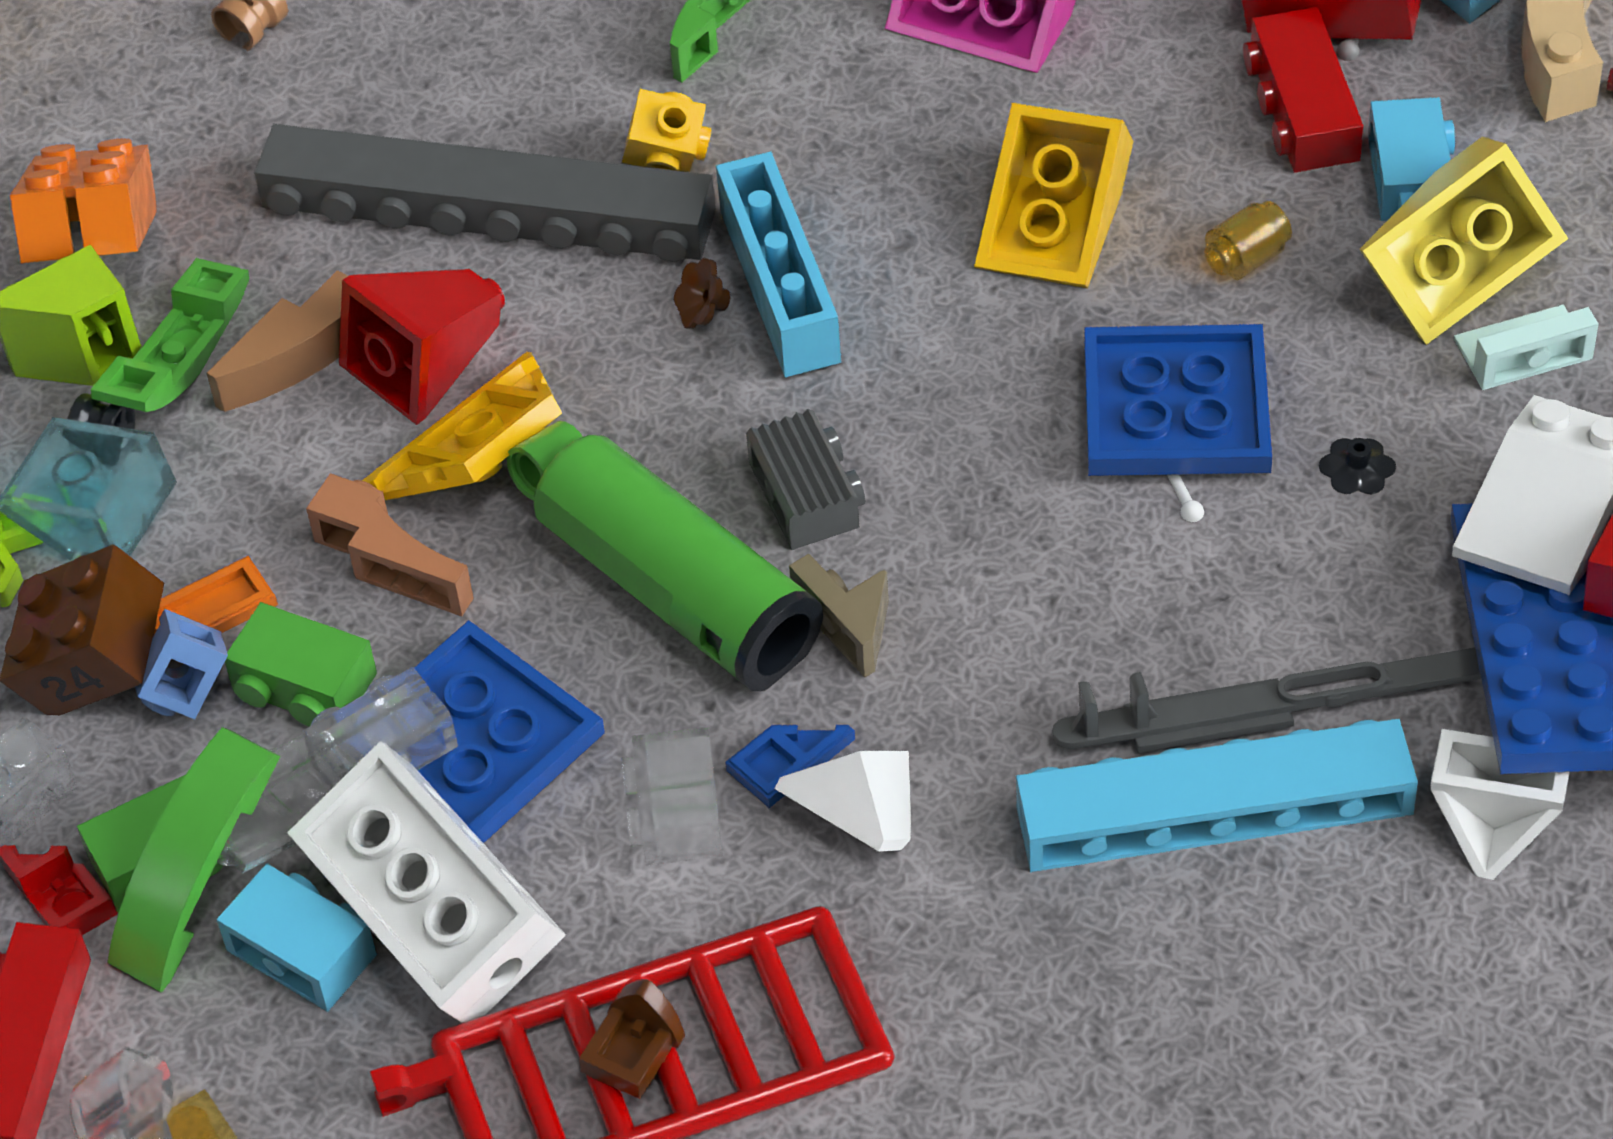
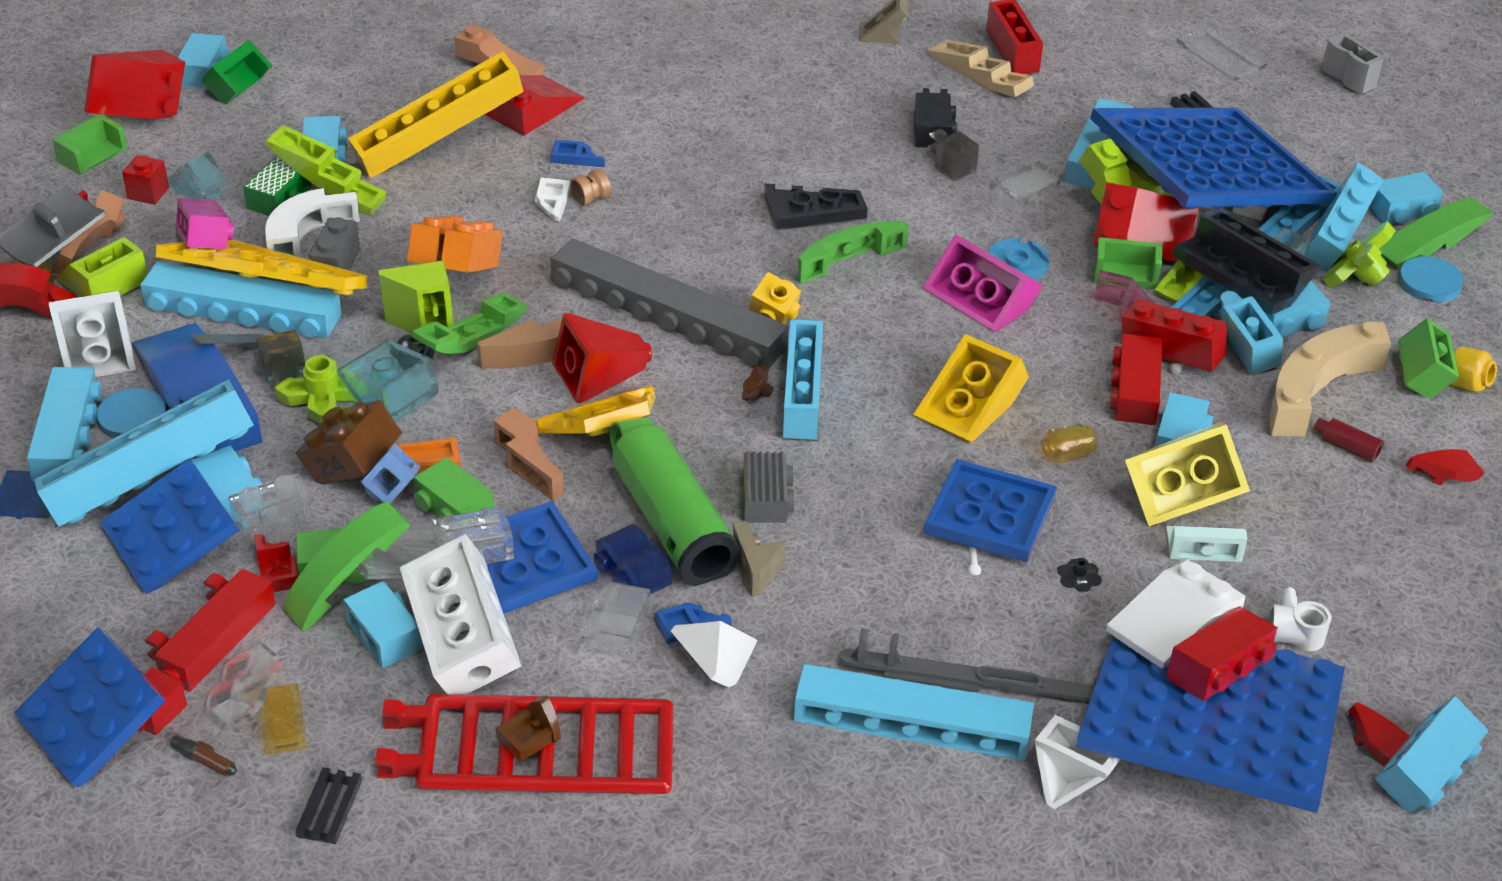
camera: 15 degrees right, 10 degrees down
(190, 49) = (552, 196): none -> white slope
(650, 682) = (633, 559): none -> clear blue brick

